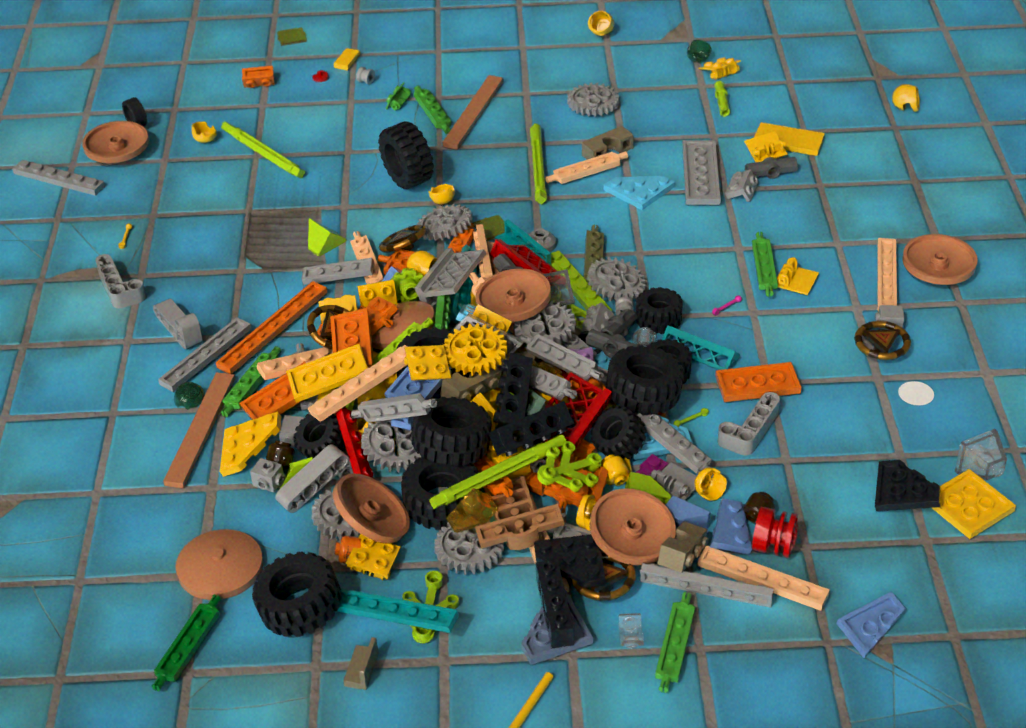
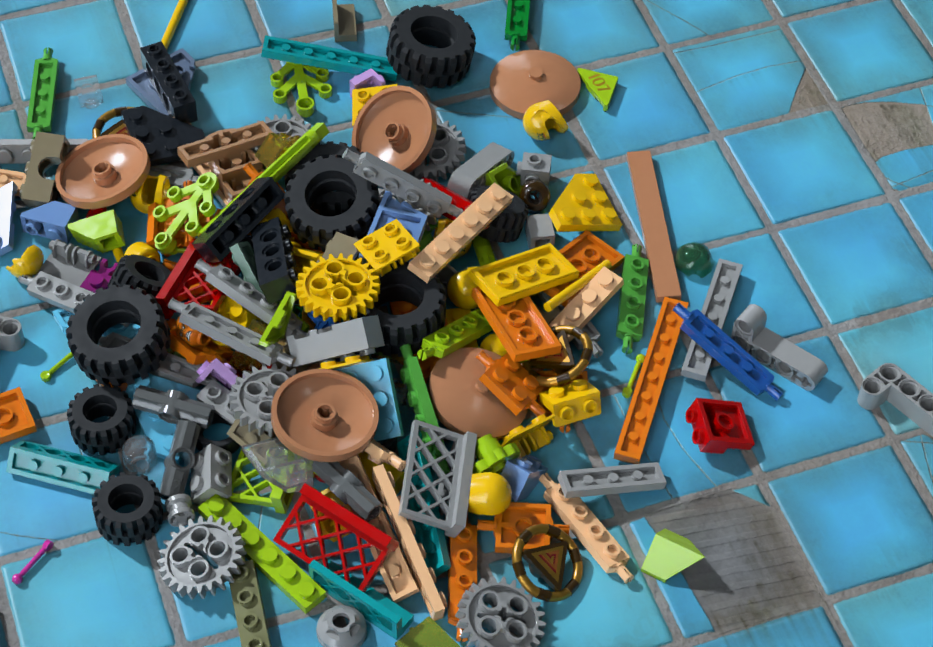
camera: 160 degrees right, 10 degrees up
(163, 550) = (599, 85): none -> lime tile
(214, 322) = (727, 352): none -> blue plate
(235, 513) = (541, 118): none -> yellow helmet
(249, 289) = (719, 425): none -> red plate
(282, 374) = (575, 287): none -> yellow bar
(293, 328) = (627, 391): none -> lime hinge
(374, 585) = (366, 79): none -> lavender bracket
(529, 345) = (278, 325): none -> lime tile

